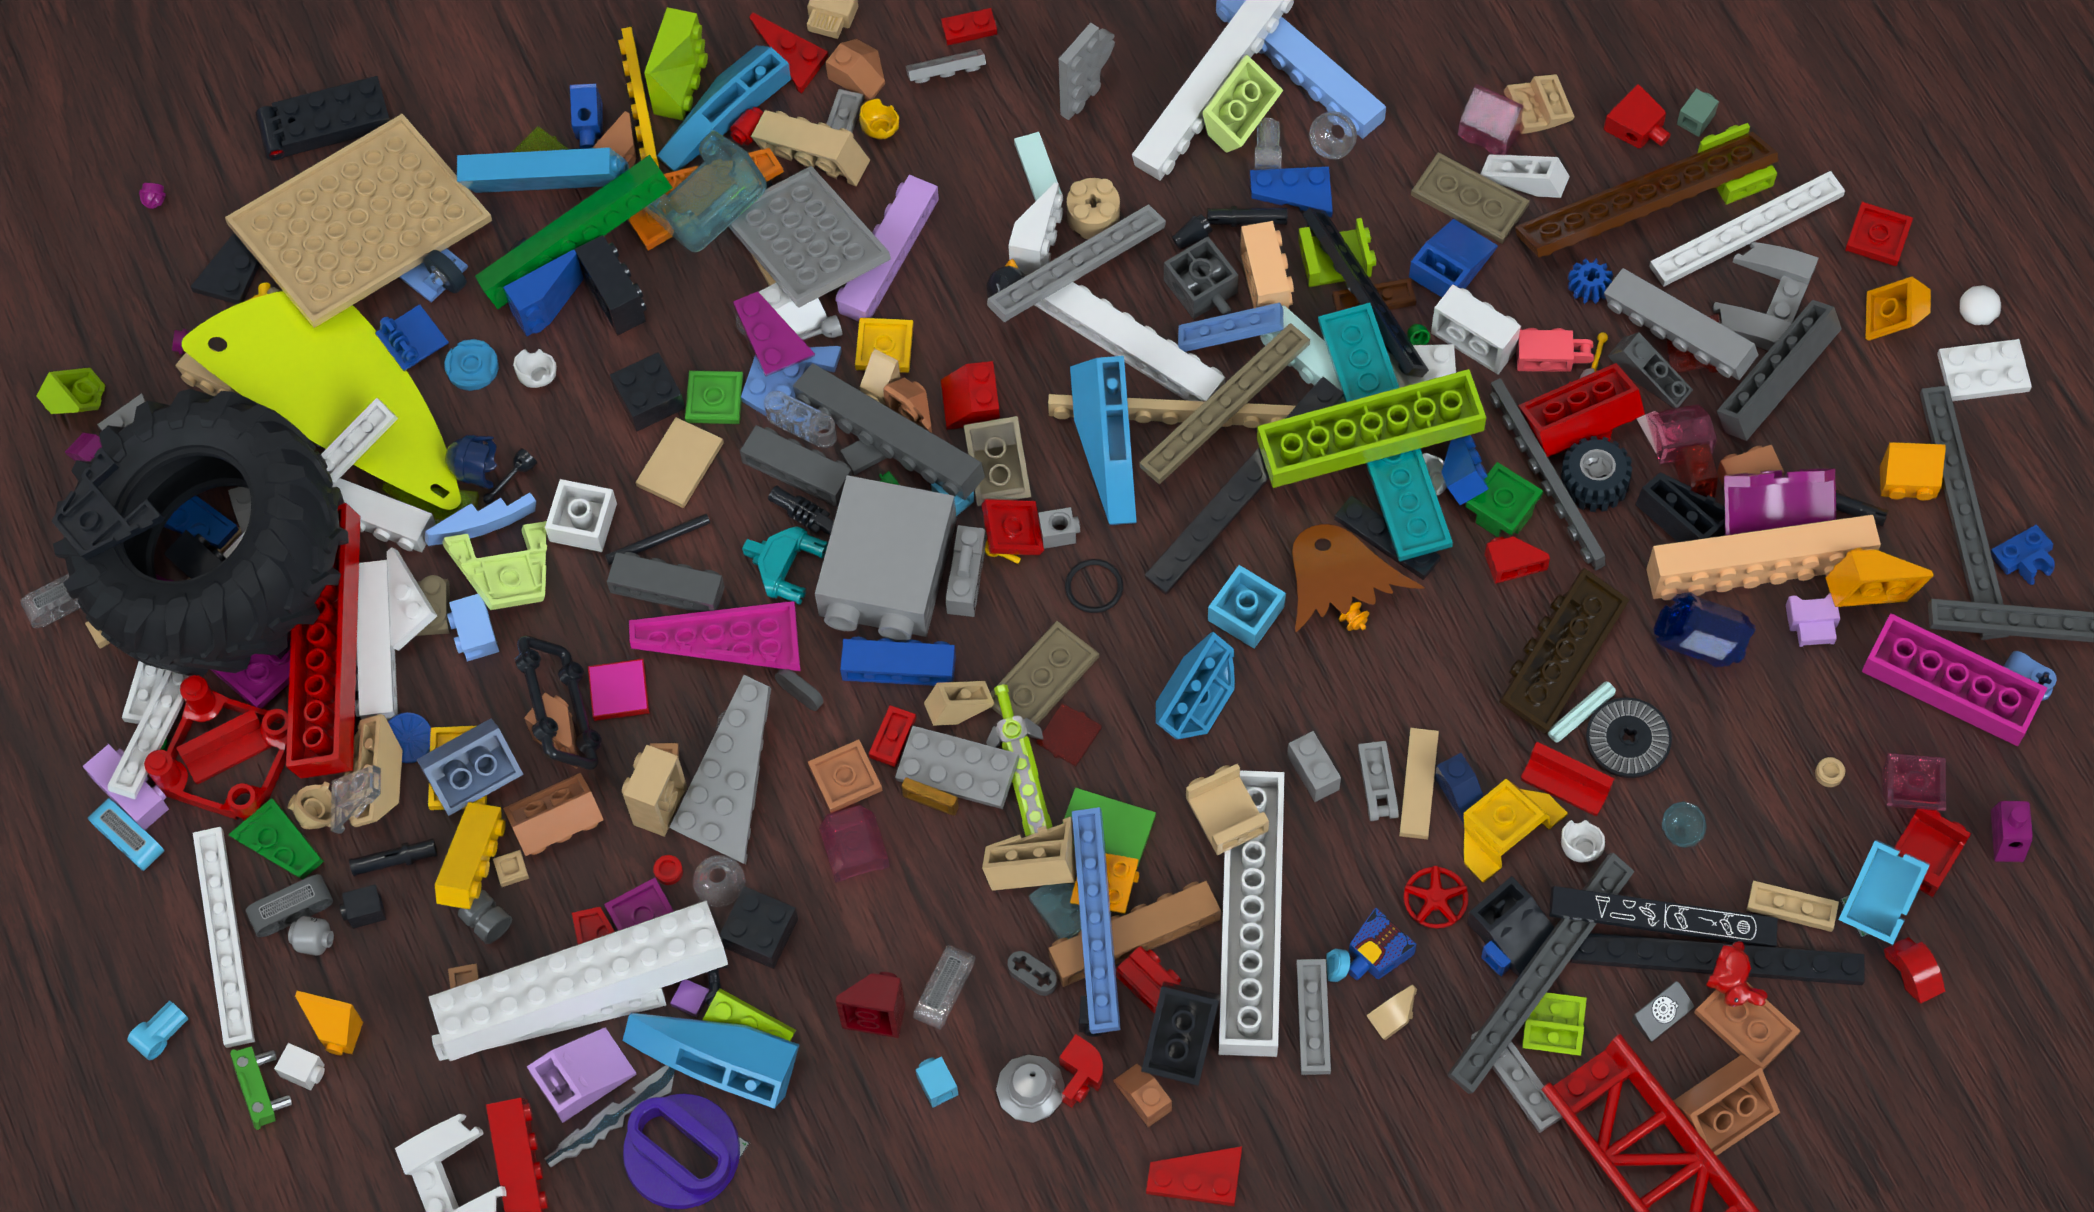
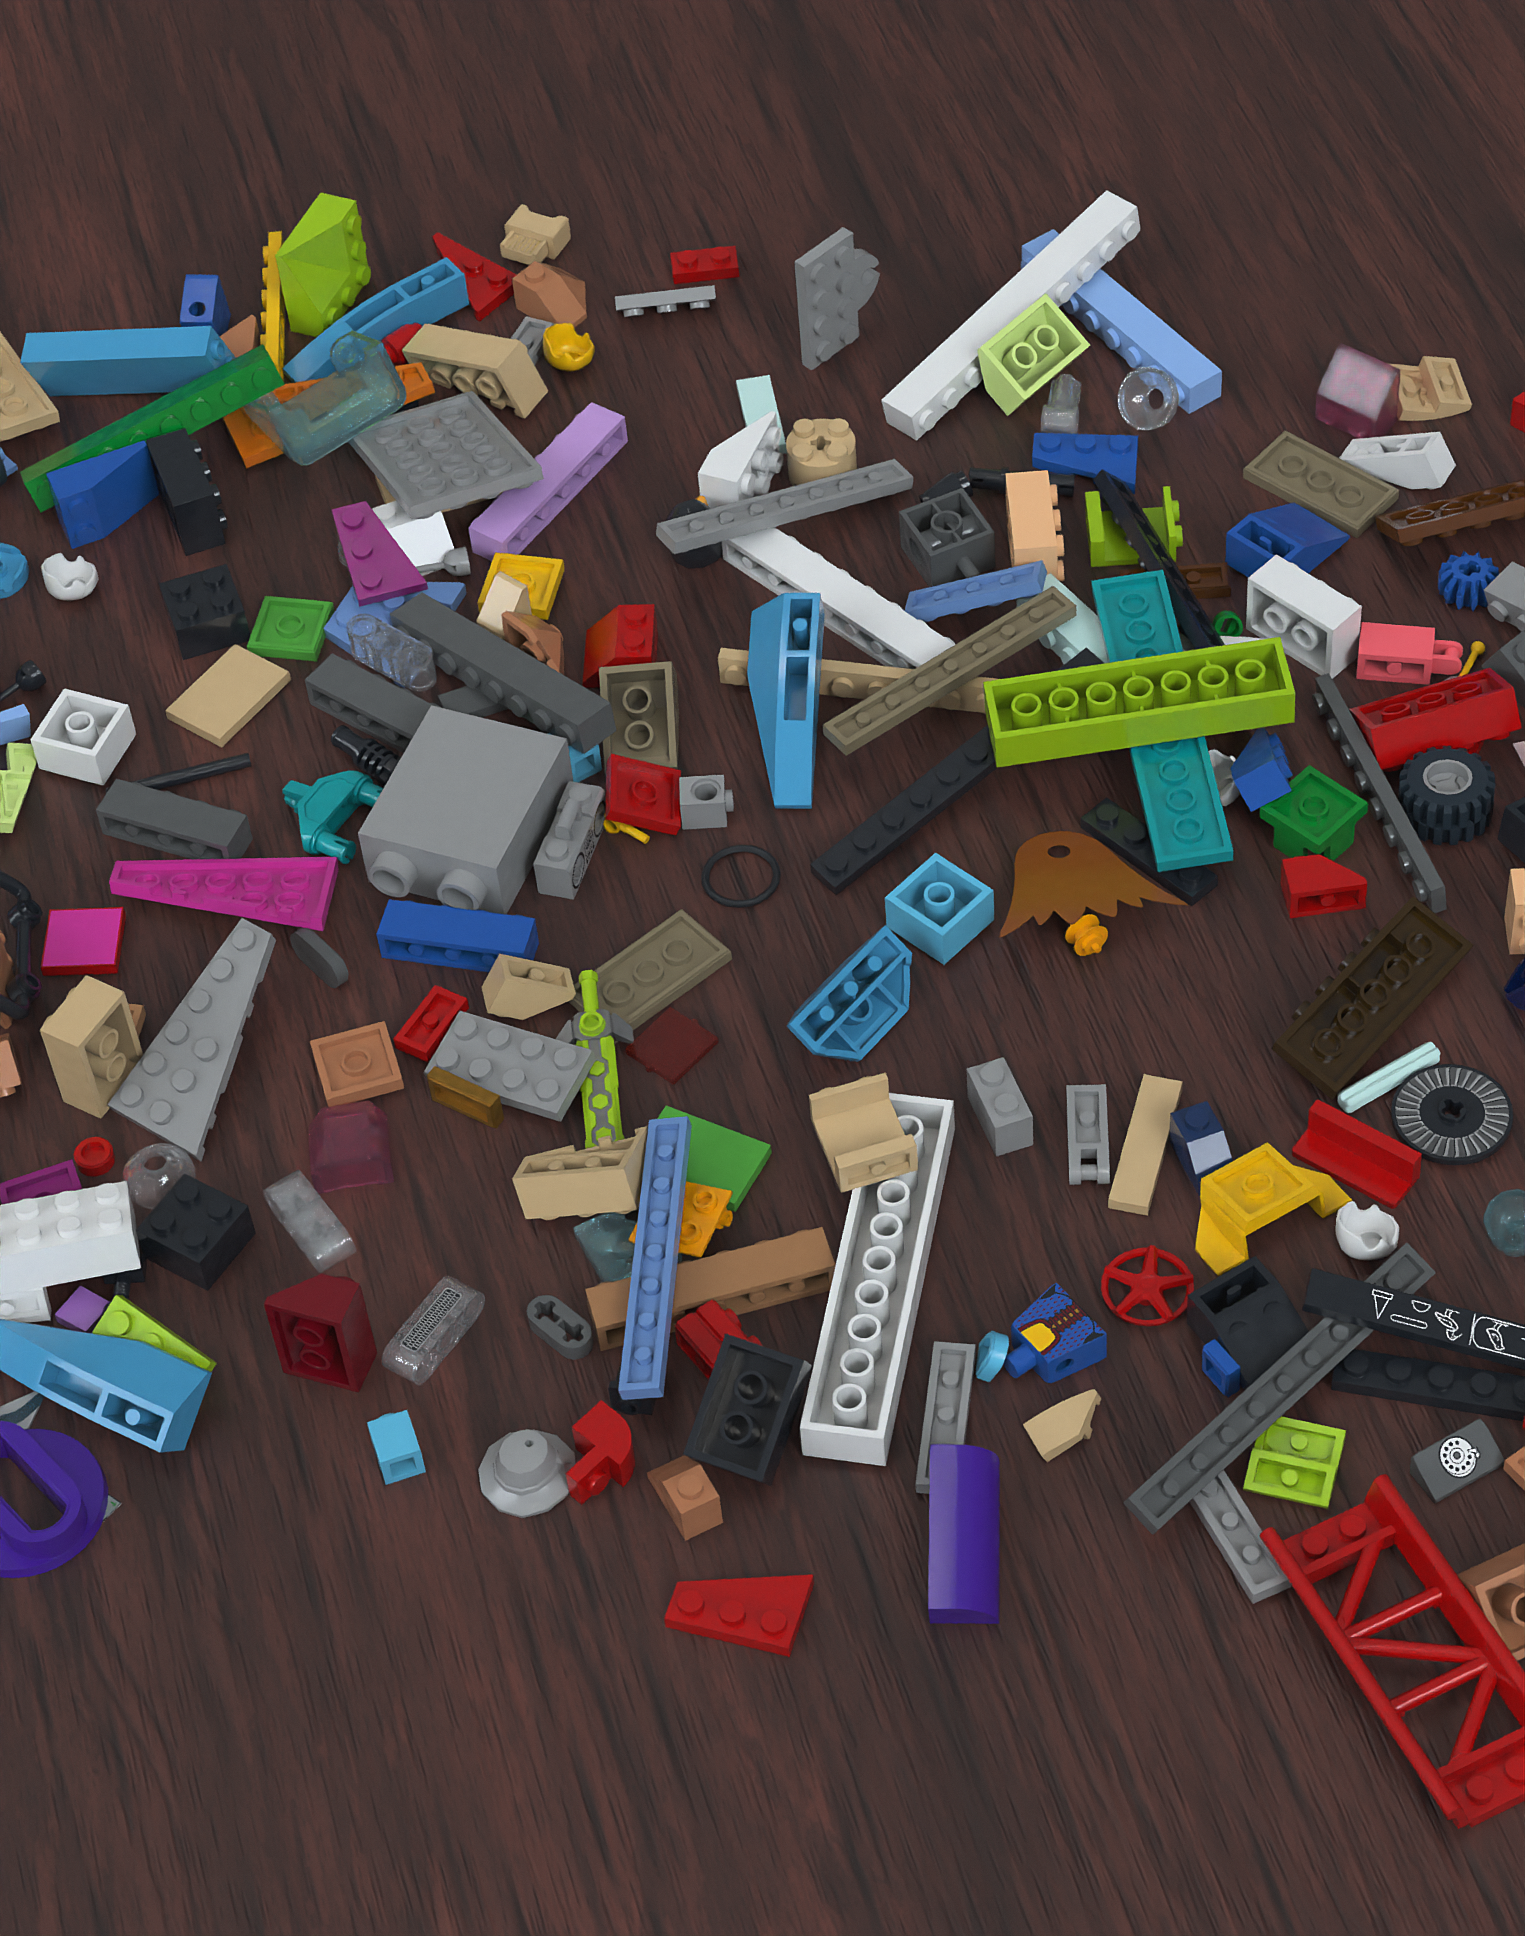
camera: 10 degrees right, 15 degrees down
(837, 909) = (309, 1221): none -> clear beam
(1340, 1108) = (964, 1535): none -> dark purple brick

